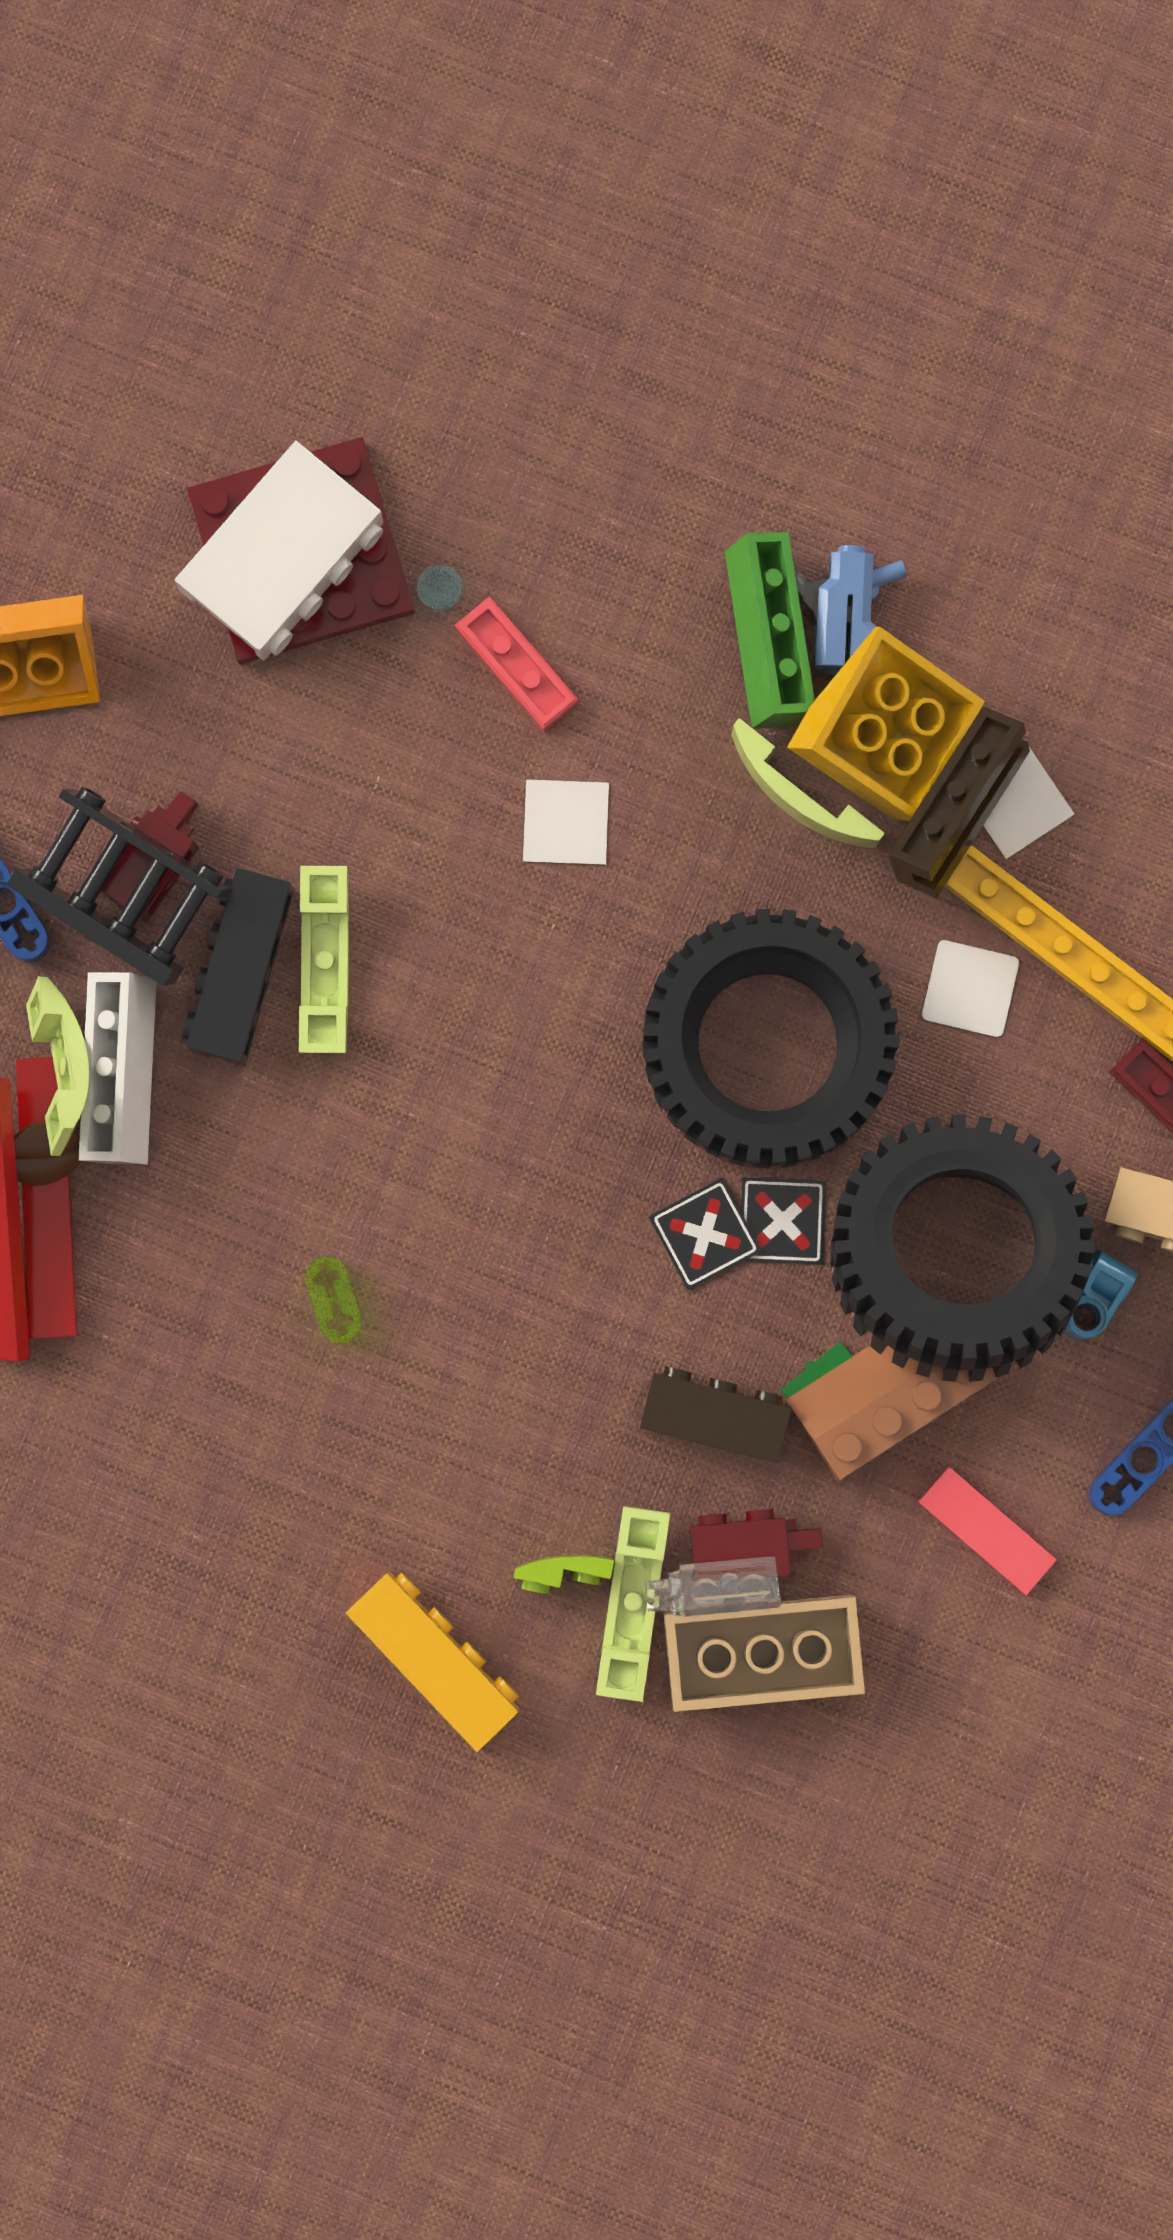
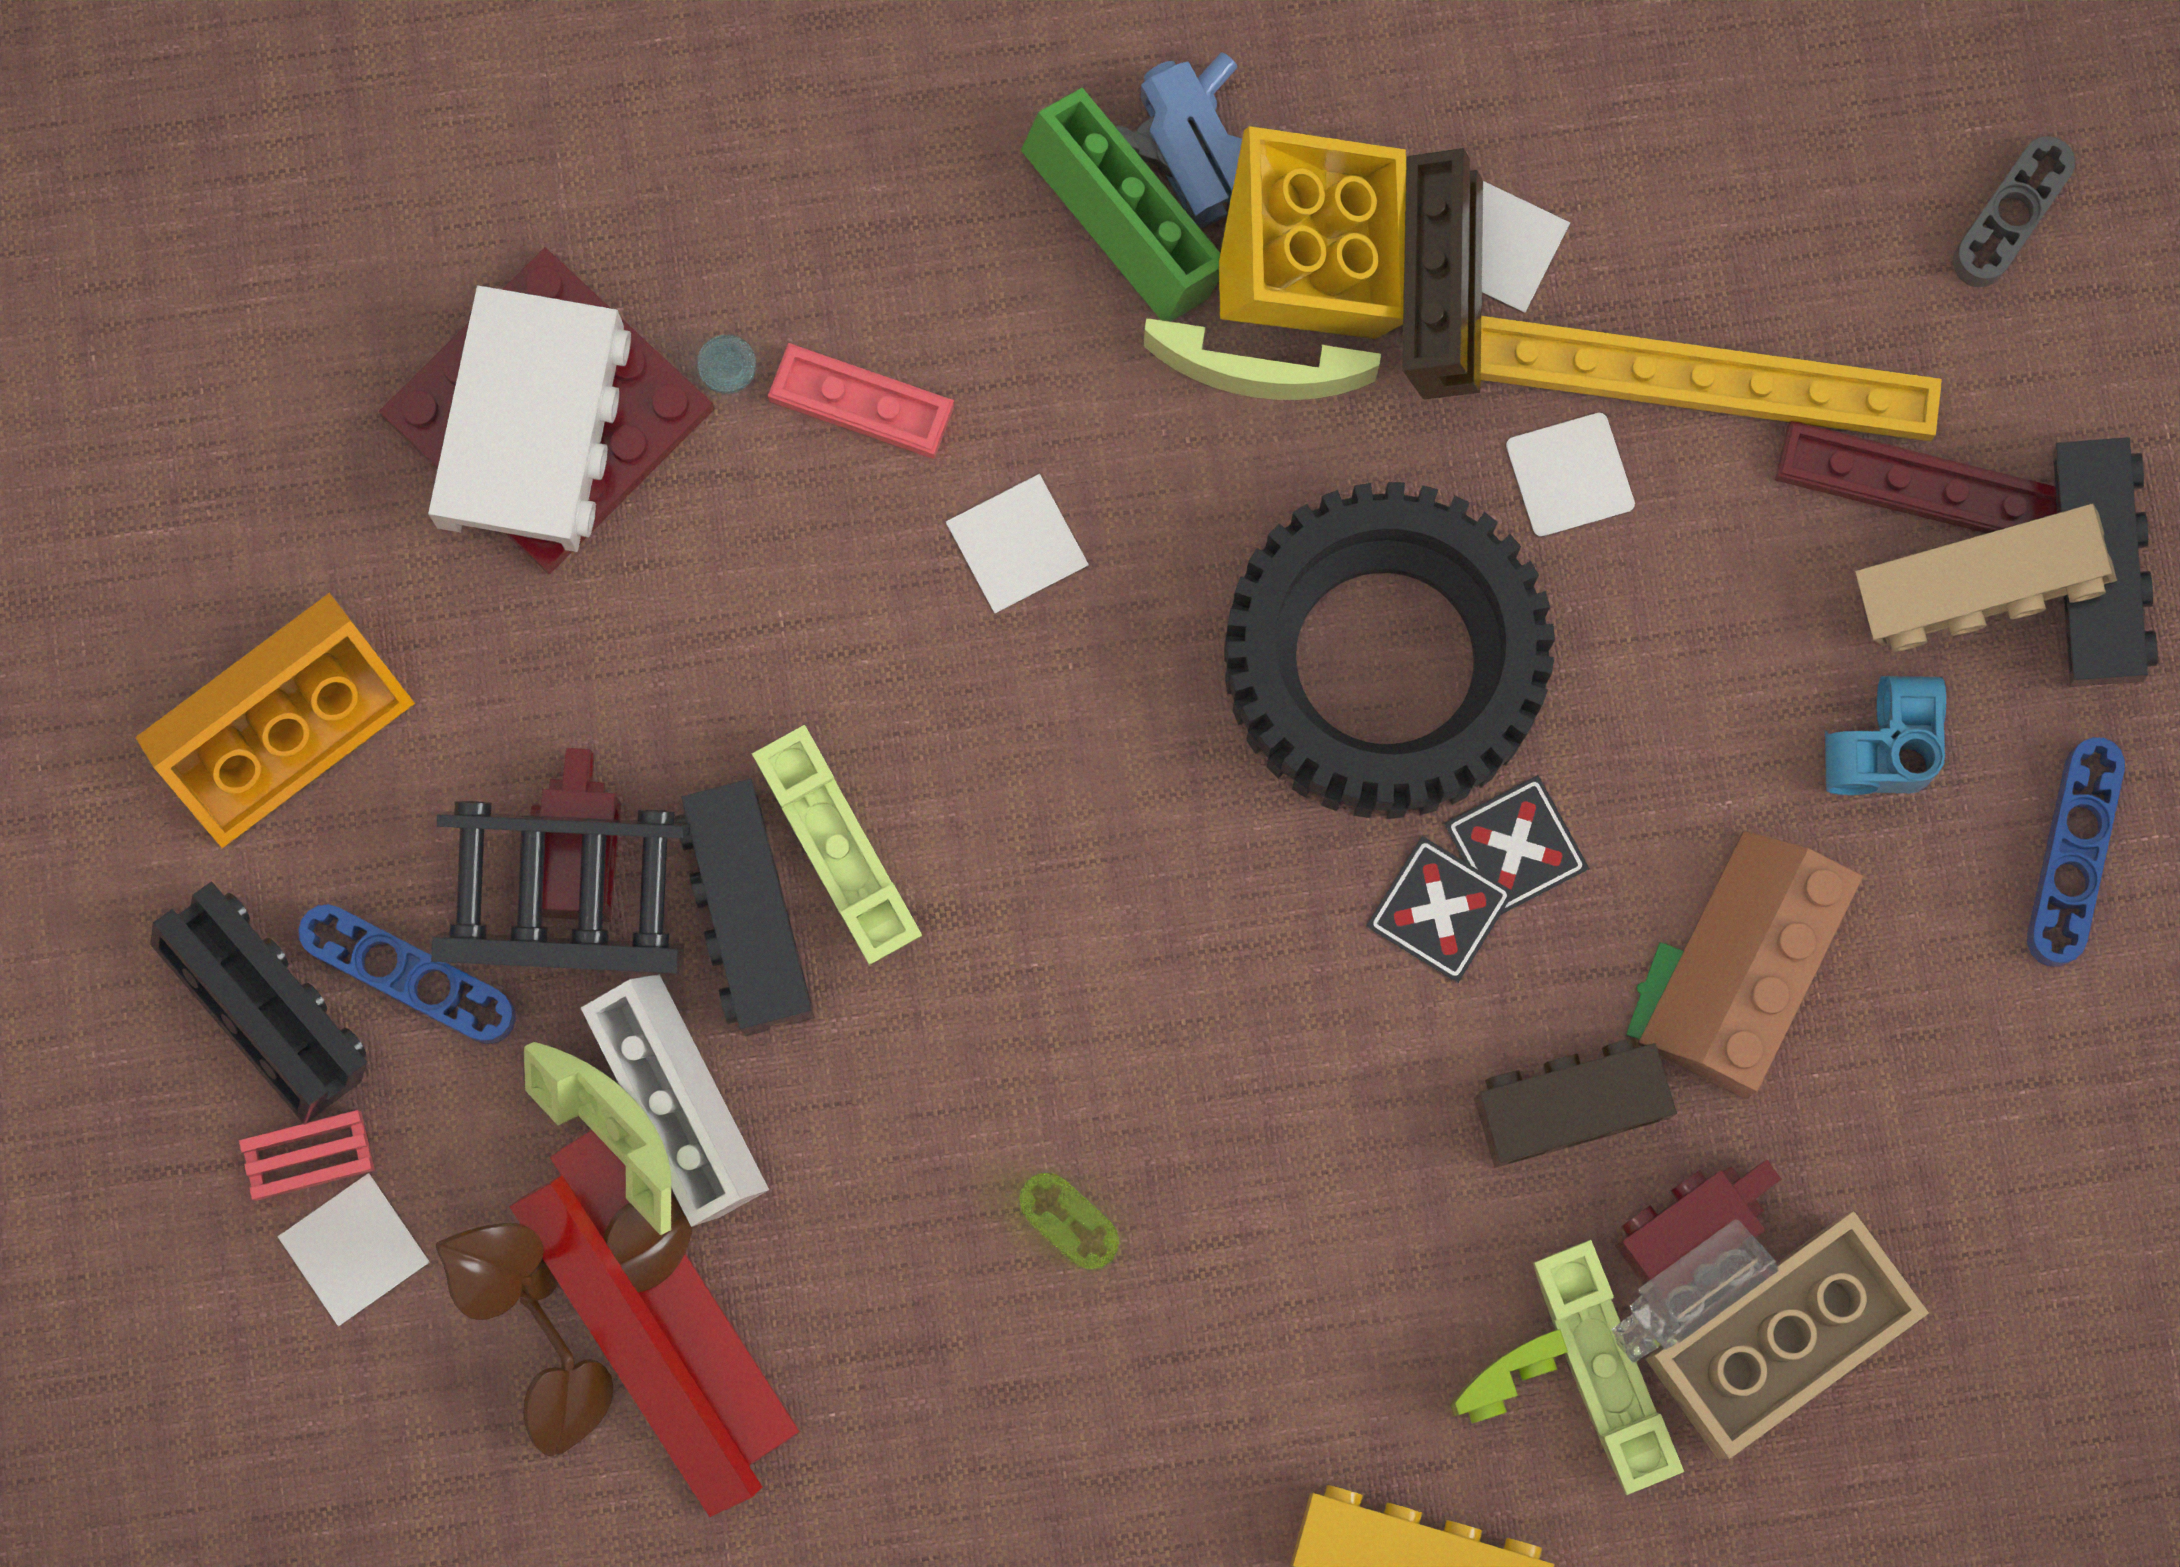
camera: 30 degrees left, 5 degrees down
(944, 1331) = (1759, 859): black tyre -> none
(986, 1530) = (1946, 1058): coral tile -> none

